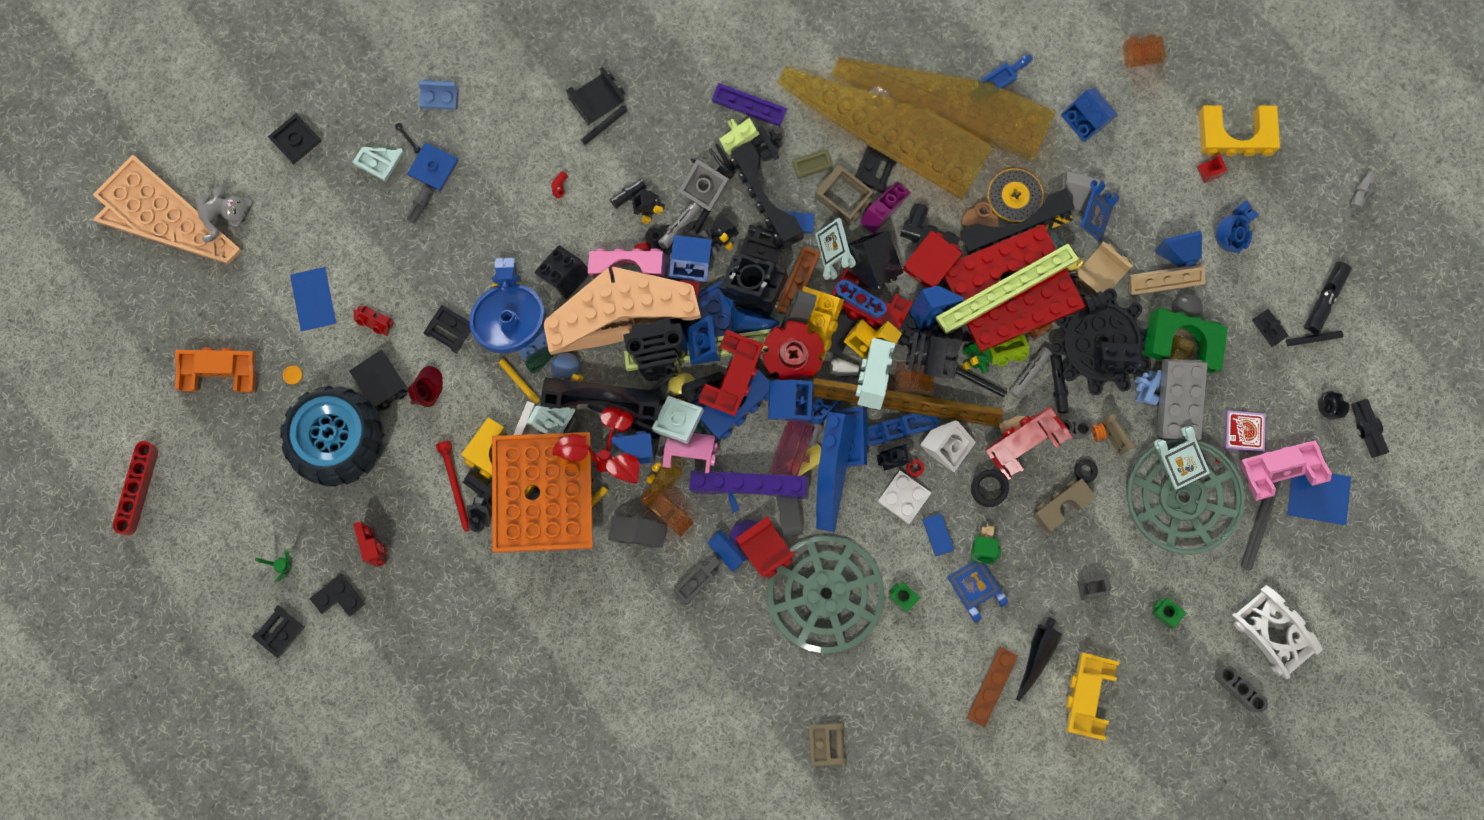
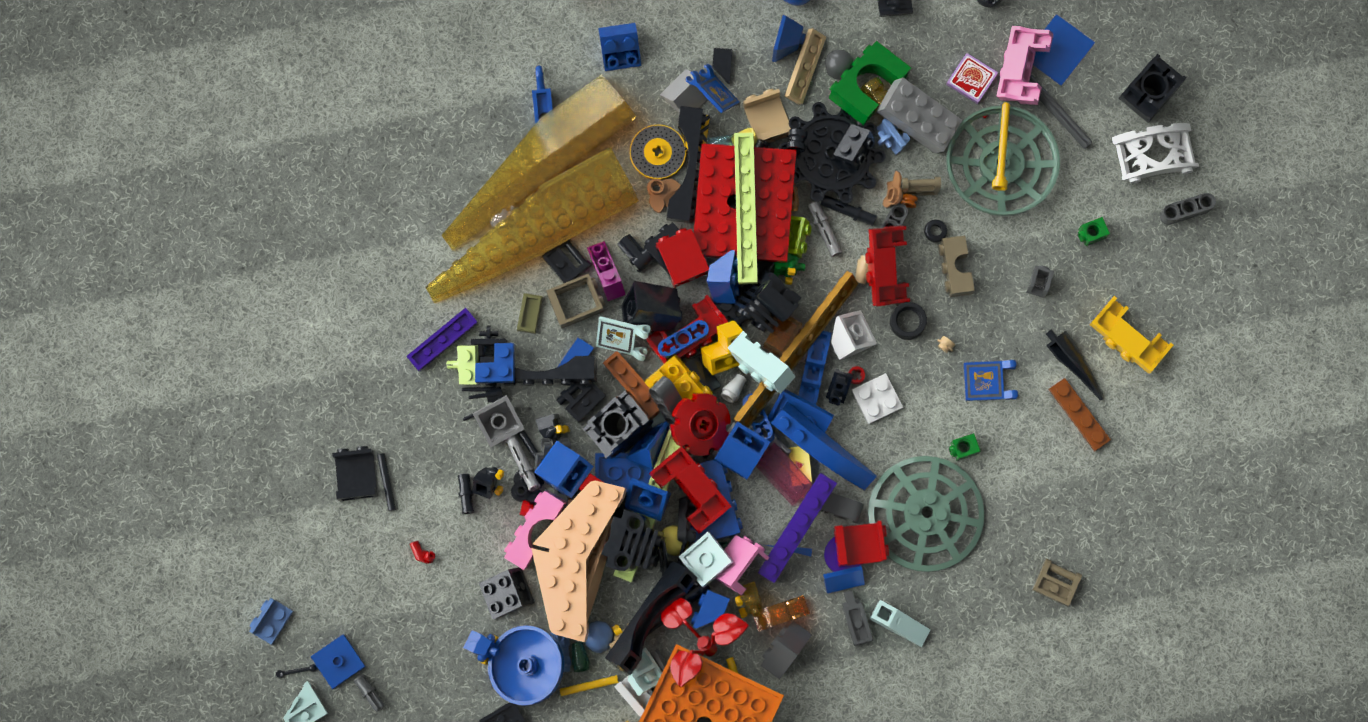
camera: 60 degrees left, 0 degrees up
(713, 620) = (899, 623): none -> light aqua slope
(748, 162) = (502, 368): none -> blue plate
(938, 535) = (925, 388): blue tile -> none
(981, 382) = (812, 274): black bar -> none
(985, 550) = (960, 355): green brick -> none
(1097, 414) = (894, 191): none -> medium nougat plate
(1127, 208) = (722, 63): none -> black tile
(1163, 502) = (1000, 182): none -> yellow piece
(1184, 461) = (975, 144): light aqua flag -> none
(1348, 592) = (1161, 79): none -> black piece

